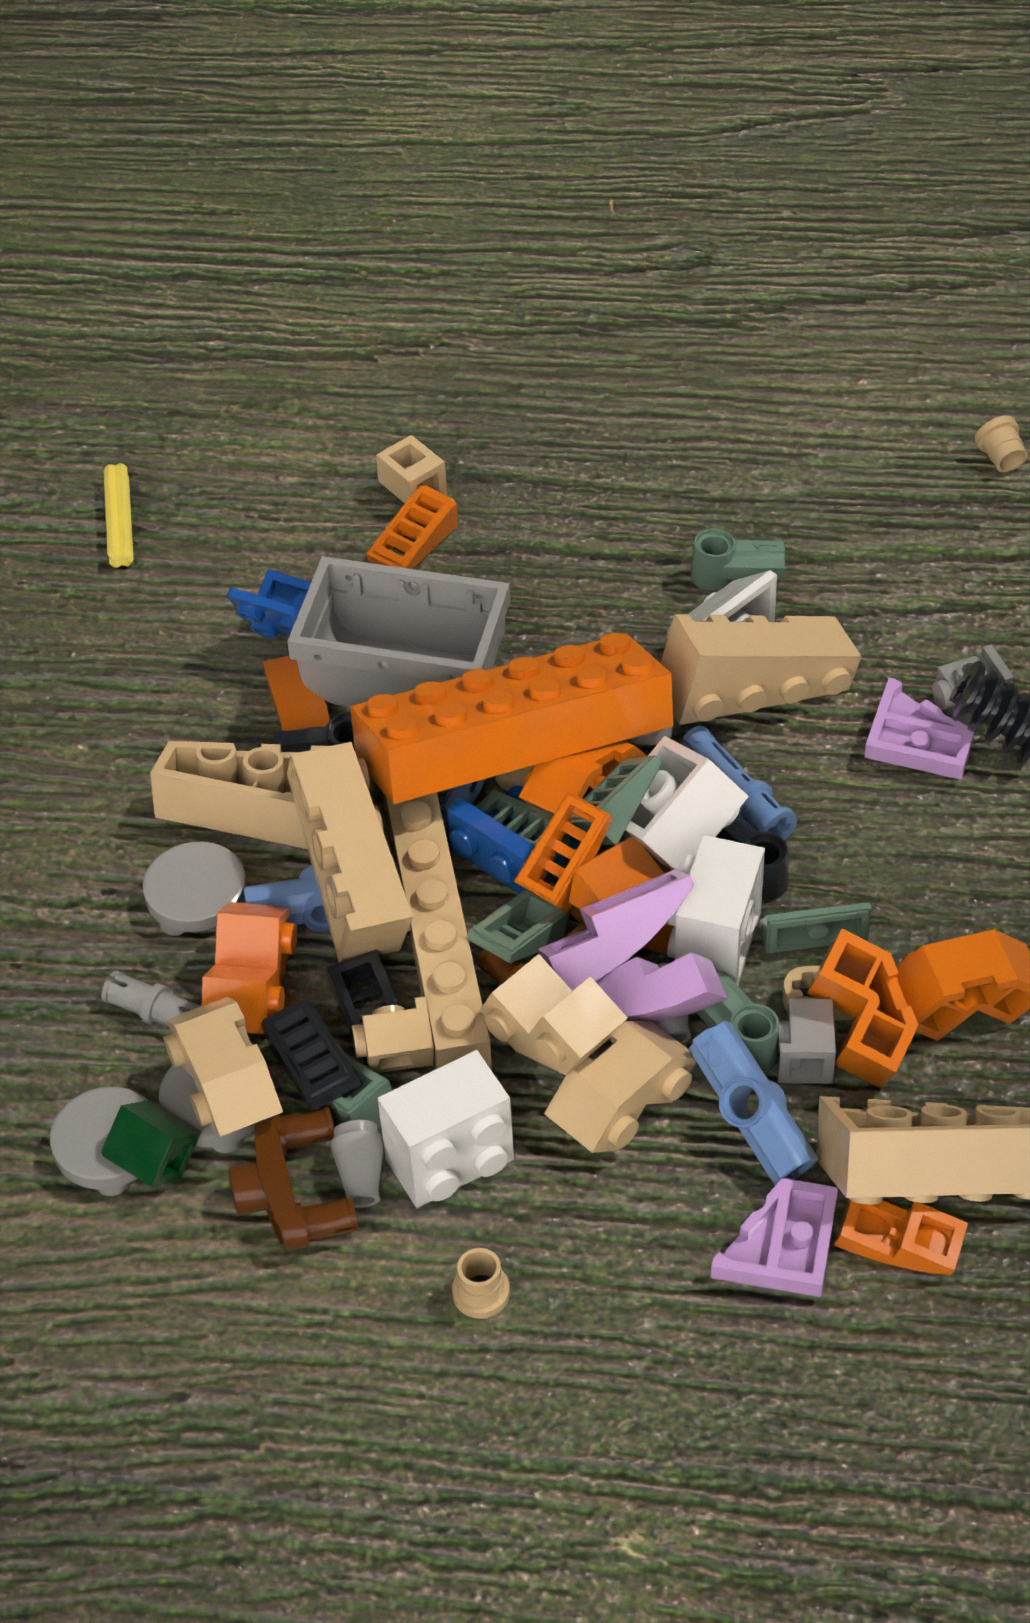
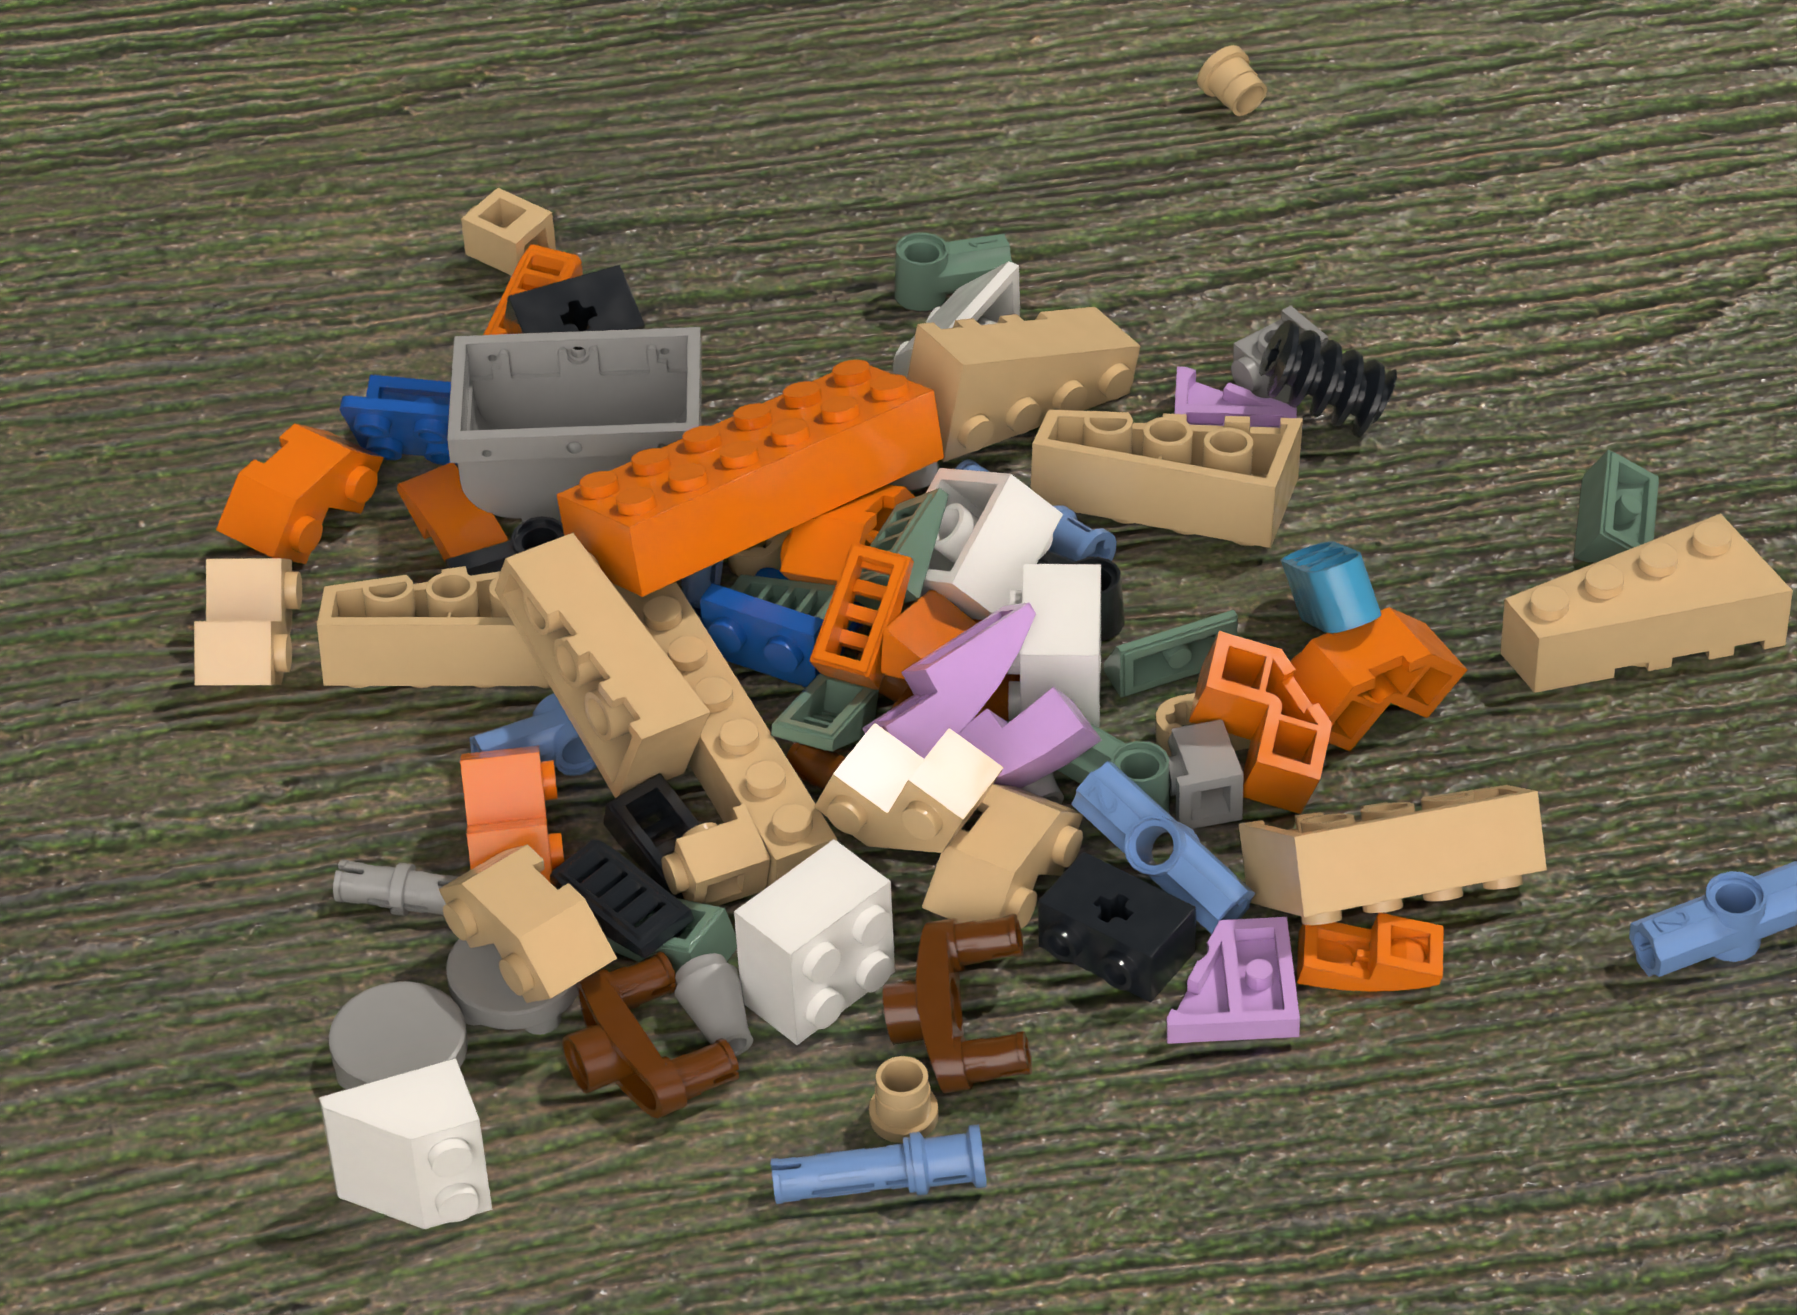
camera: 15 degrees left, 5 degrees down
(75, 1240) = (409, 1146): none -> white slope
(113, 756) = (246, 622): none -> tan brick
(118, 515) = (141, 350): light yellow axle -> none
(150, 1143) = (461, 1027): dark green panel -> none
(170, 660) = (285, 500): none -> orange brick
(191, 885) = (403, 753): light grey tile -> none
(452, 540) = (573, 305): none -> black brick
(469, 1344) = (914, 1164): none -> medium blue pin
(528, 1205) = (933, 1006): none -> reddish brown connector
(697, 1165) = (1116, 927): none -> black brick
(855, 769) = (1170, 473): none -> tan wedge
(952, 901) = (1331, 587): none -> dark azure beam

